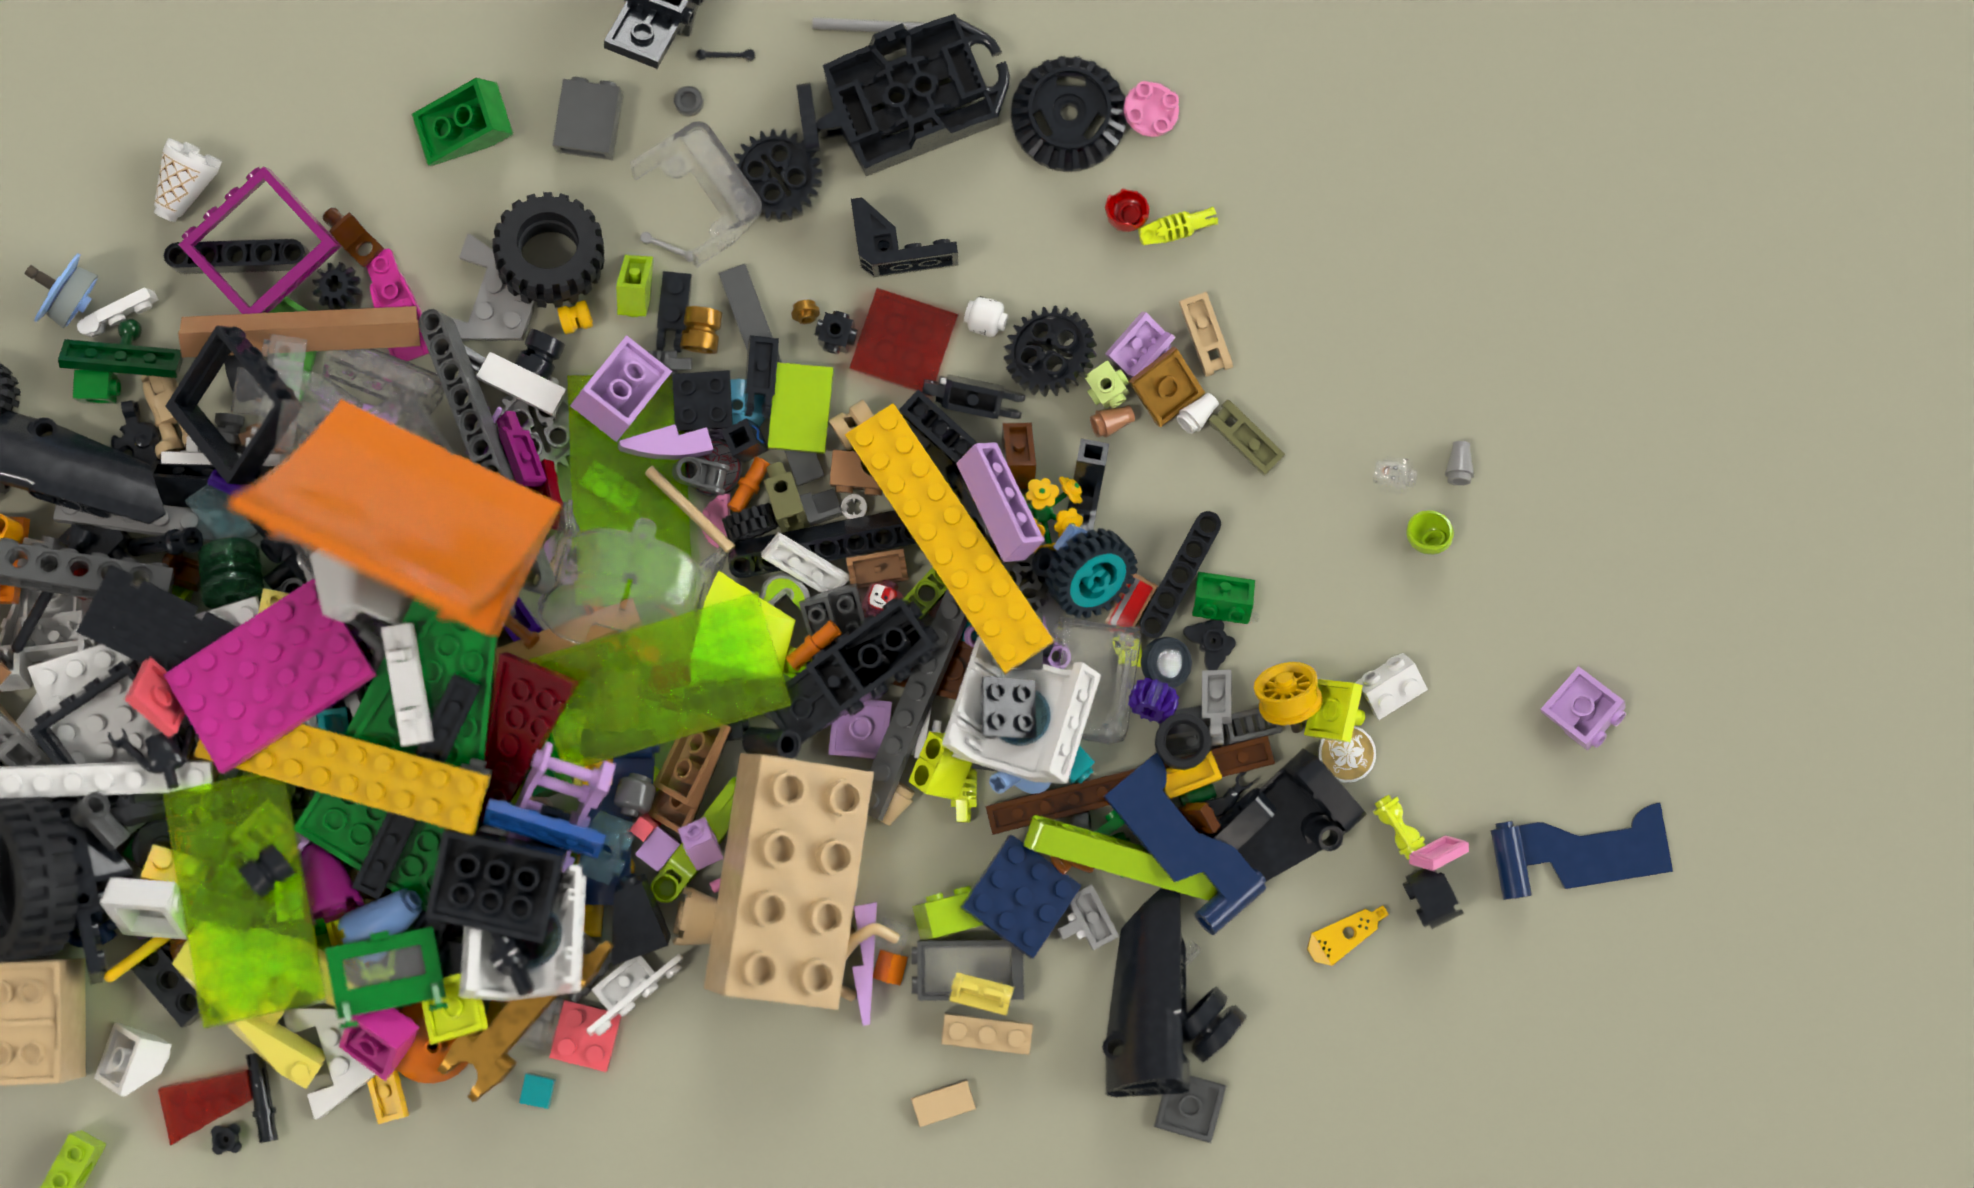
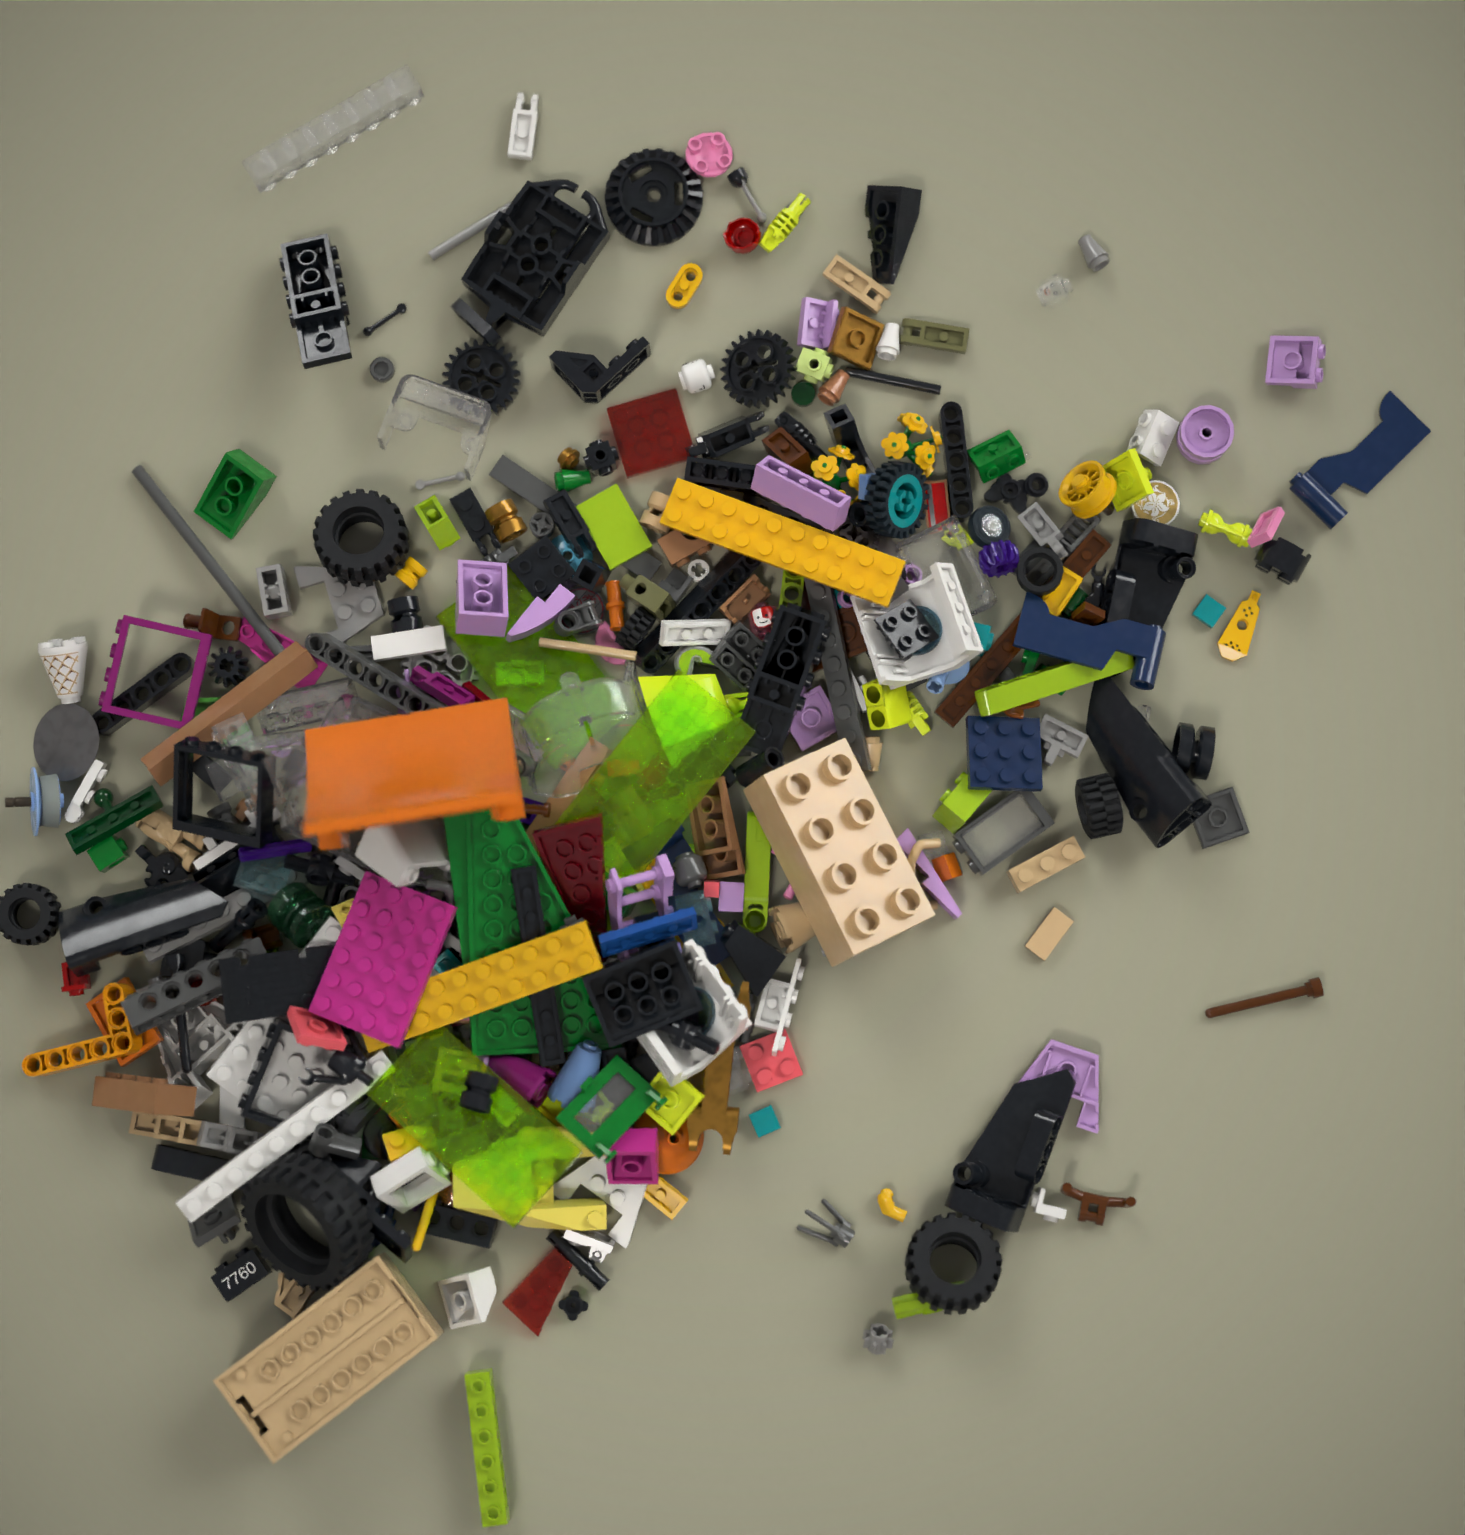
camera: 30 degrees left, 0 degrees up
(131, 251) = (66, 741): none -> flat silver sticker
(292, 1096) = (599, 1243): none -> hinge
(390, 170) = (208, 560): none -> dark grey piece
(407, 684) = (484, 898): white hinge -> none
(430, 244) = (274, 591): none -> light grey brick
(588, 118) = (321, 429): dark grey brick -> none
(700, 843) = (760, 870): lavender brick -> none
(731, 353) = (540, 521): none -> dark grey wheel
(793, 333) = (571, 479): none -> green cone
(813, 645) = (740, 681): orange pin -> none
(981, 993) = (1024, 838): light yellow hinge -> none
(1035, 220) = (684, 287): none -> yellow plate
(1045, 445) = (800, 434): none -> black hinge
(1078, 406) = (803, 394): none -> dark green tile
(1078, 1014) = (1099, 806): none -> black tyre
(1134, 523) = (899, 445): none -> yellow plant
(1163, 153) = (739, 180): none -> hinge
(1175, 453) = (893, 380): none -> black bar
(1251, 653) = (1041, 480): none -> black plate
(1284, 297) = (892, 221): none -> black wedge
(1325, 896) = (1208, 611): none -> teal tile
(1430, 532) = (1106, 313): lime piece -> none
(1459, 712) = (1210, 422): none -> lavender wheel

